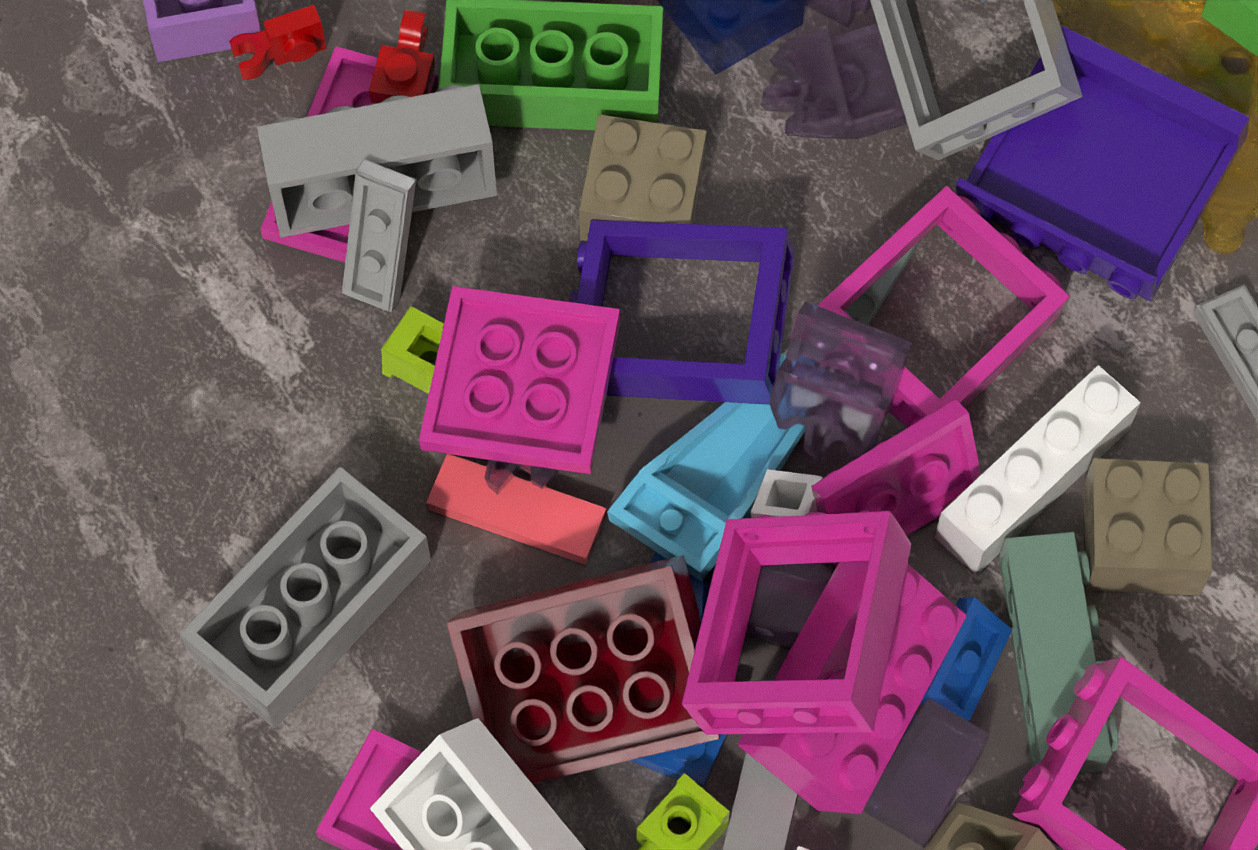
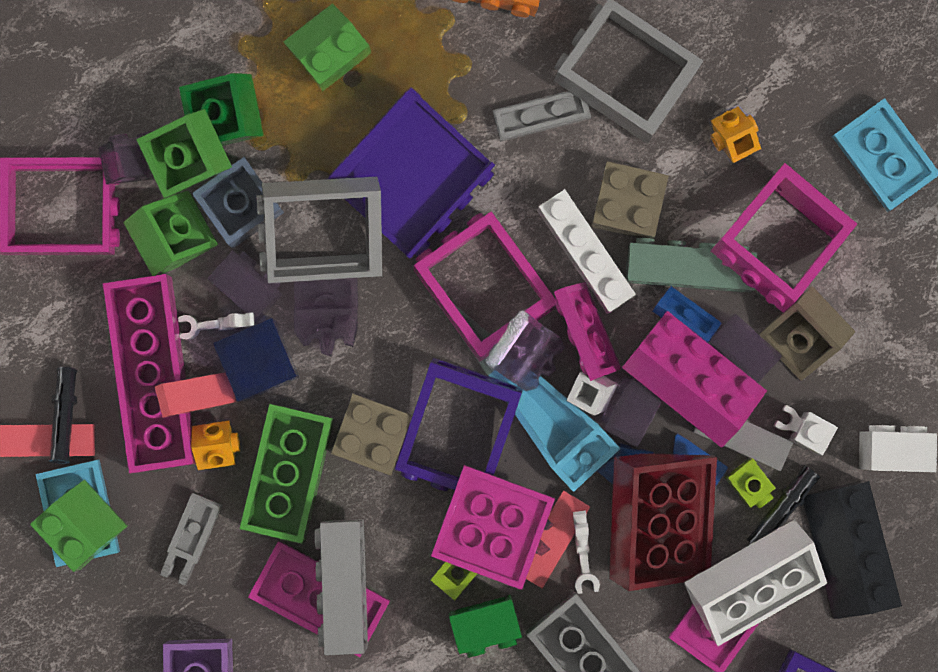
camera: 75 degrees left, 20 degrees up
(285, 39) = (237, 621): red plate -> none
(345, 404) = (485, 625): none -> green brick
(378, 235) = (390, 593): light grey tile -> none
(404, 68) = (276, 560): red plate -> none
(511, 560) = (582, 549): none -> white piece
(796, 705) = (660, 442): dark pink window -> none

